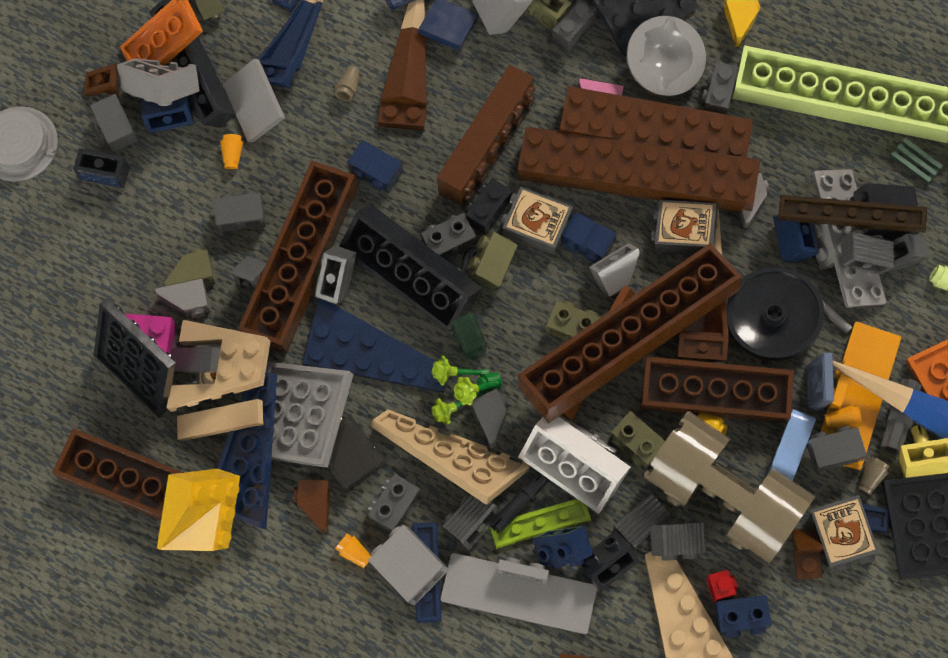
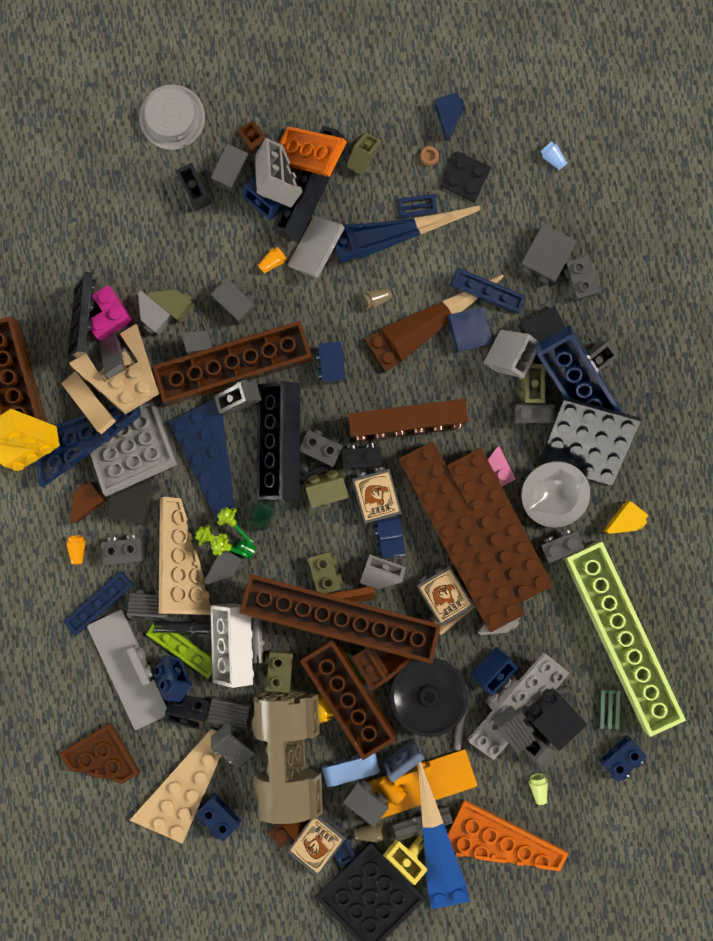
camera: 50 degrees right, 15 degrees up
(408, 564) = (90, 590): light grey brick -> none
(722, 586) = (226, 791): red brick -> none
(852, 213) = (532, 703): dark brown tile -> none

